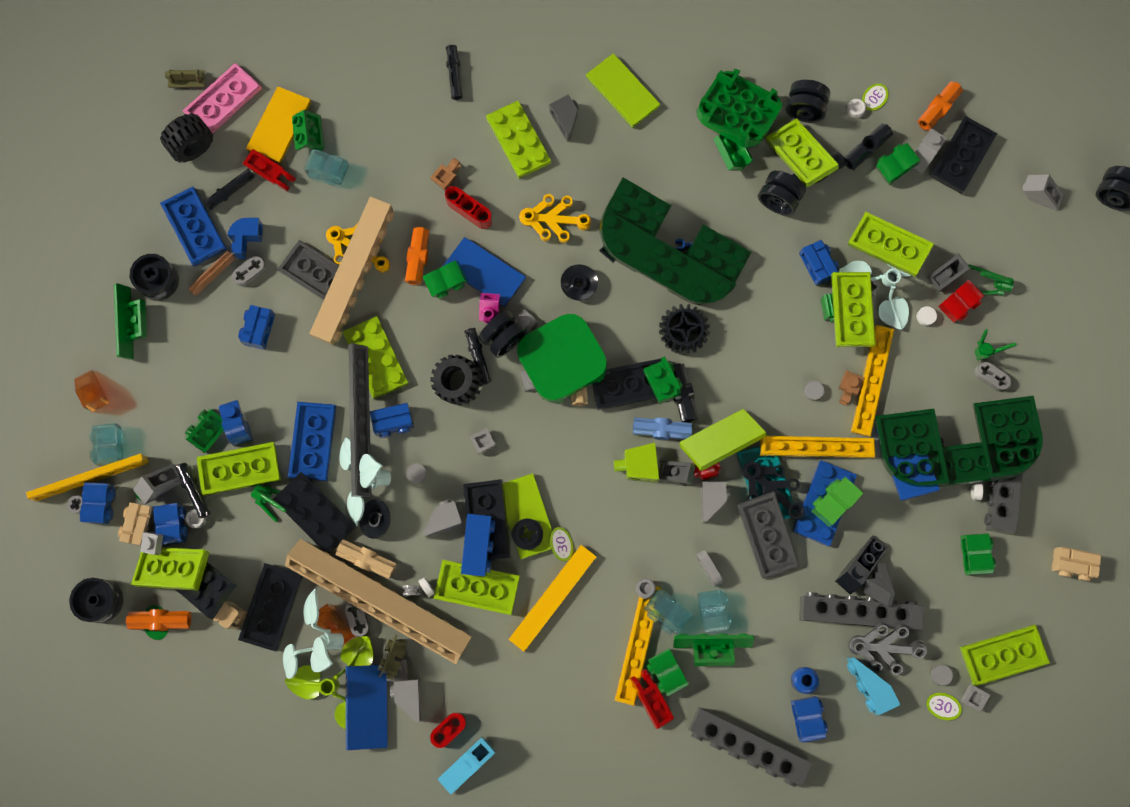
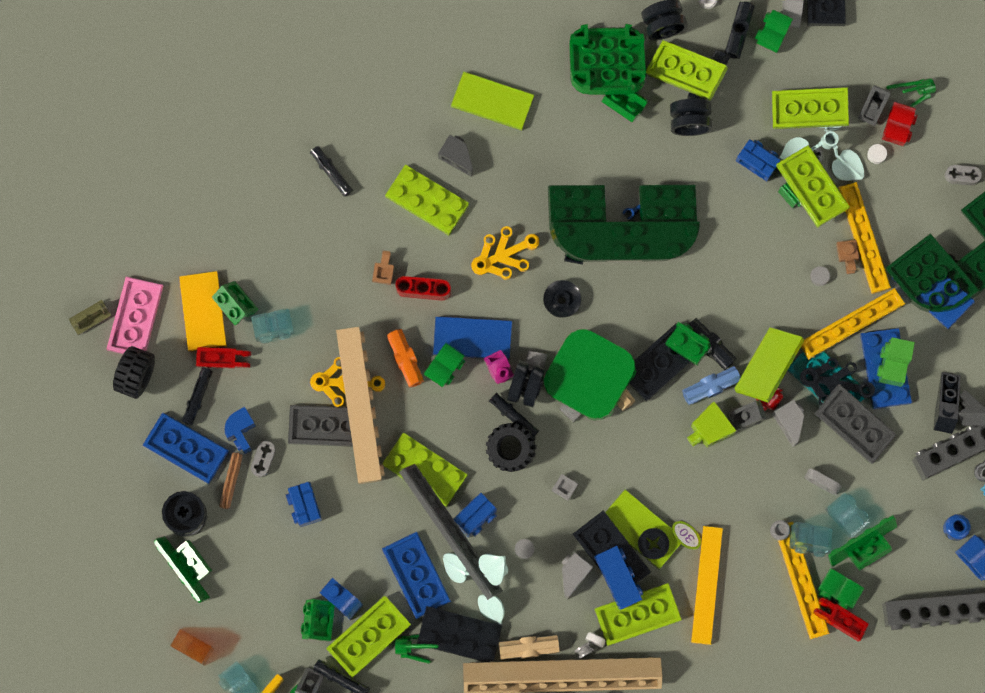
camera: 30 degrees left, 0 degrees up
(375, 519) = (513, 617): black dish -> none
(690, 327) = (683, 293): black gear -> none
(985, 350) = (944, 155): green plant -> none

